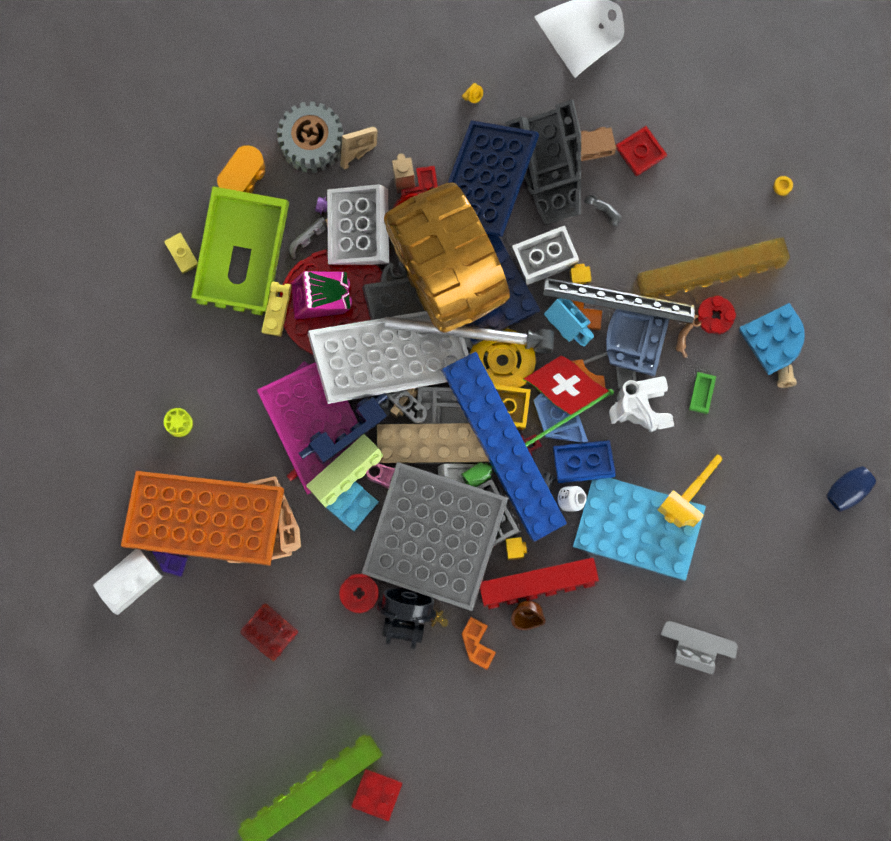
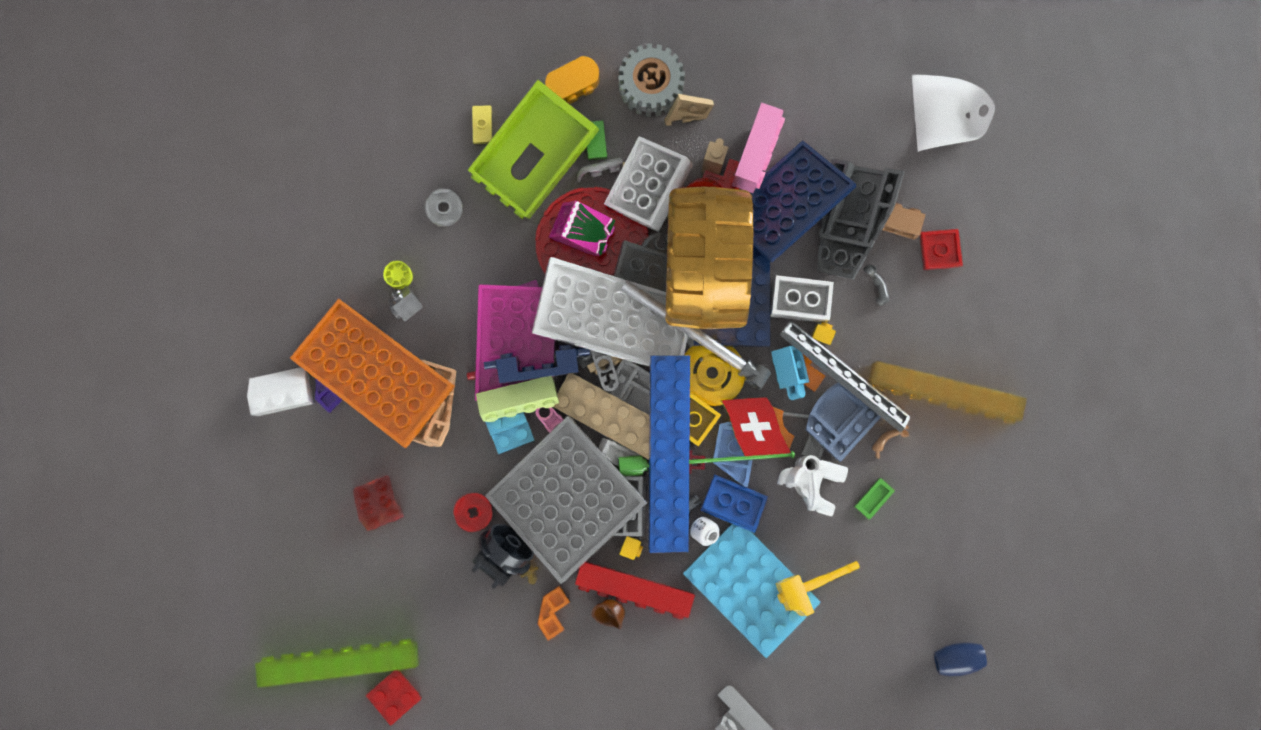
camera: 25 degrees right, 5 degrees up
(189, 353) = (446, 218): none -> light grey tile
(198, 442) = (404, 303): none -> flat silver brick
(276, 309) = (537, 220): light yellow plate -> none
(294, 219) = (597, 146): none -> bright green tile
(321, 205) = (627, 147): medium lavender plate -> none
(437, 143) = (759, 148): none -> bright pink brick
(473, 94) = (818, 117): yellow plate -> none
(716, 325) = (936, 438): red plate -> none
(775, 338) = (968, 485): dark azure plate -> none
(783, 185) = (1052, 349): yellow tile -> none
(786, 377) = (958, 524): tan bush -> none

